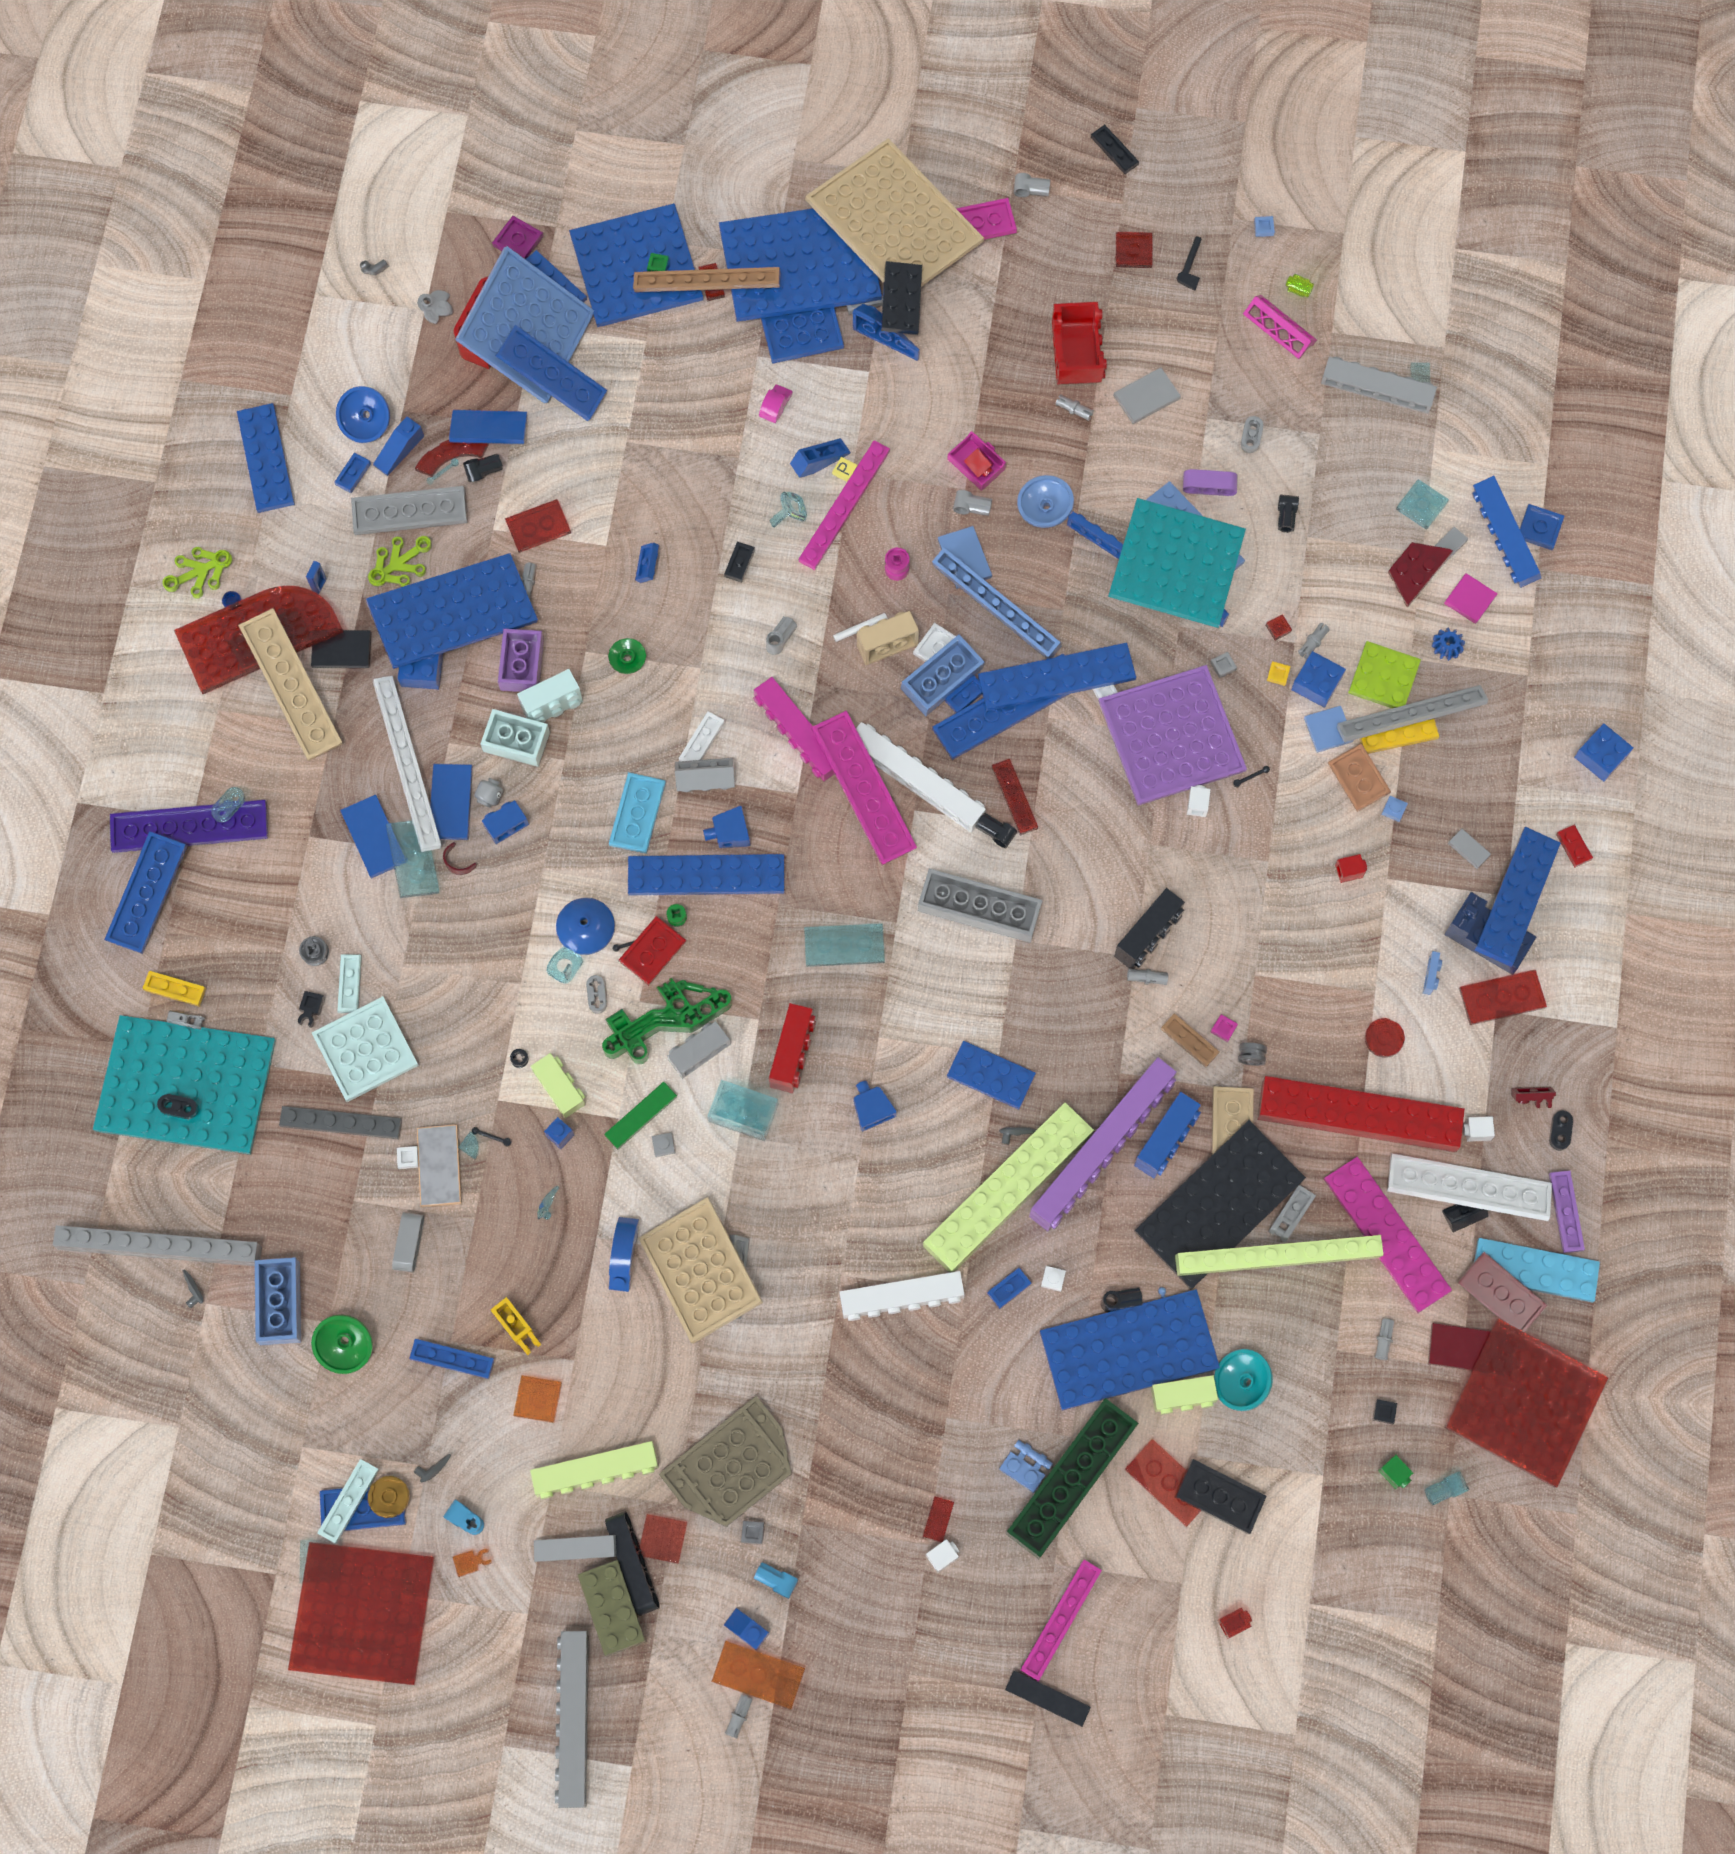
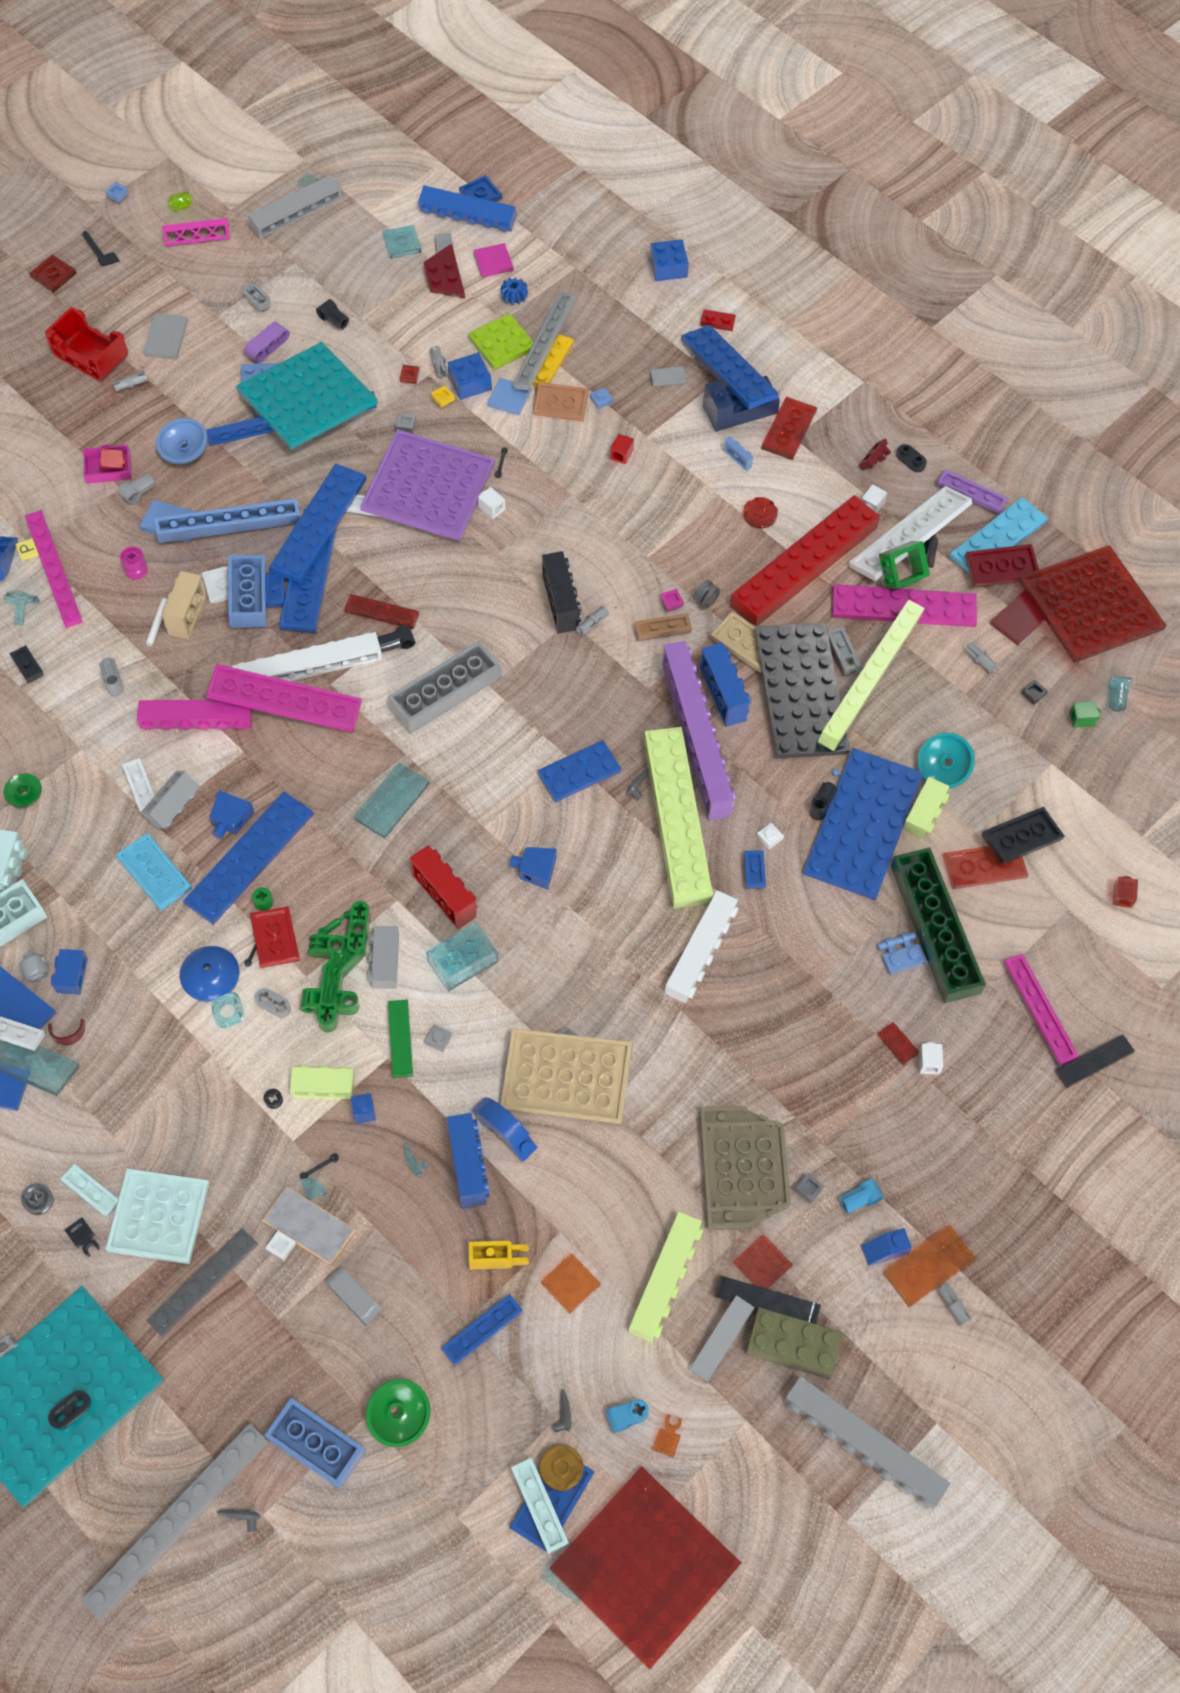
camera: 55 degrees left, 10 degrees down
(573, 1245) = (466, 1155): none -> blue brick
(1414, 1185) = (918, 563): none -> green window

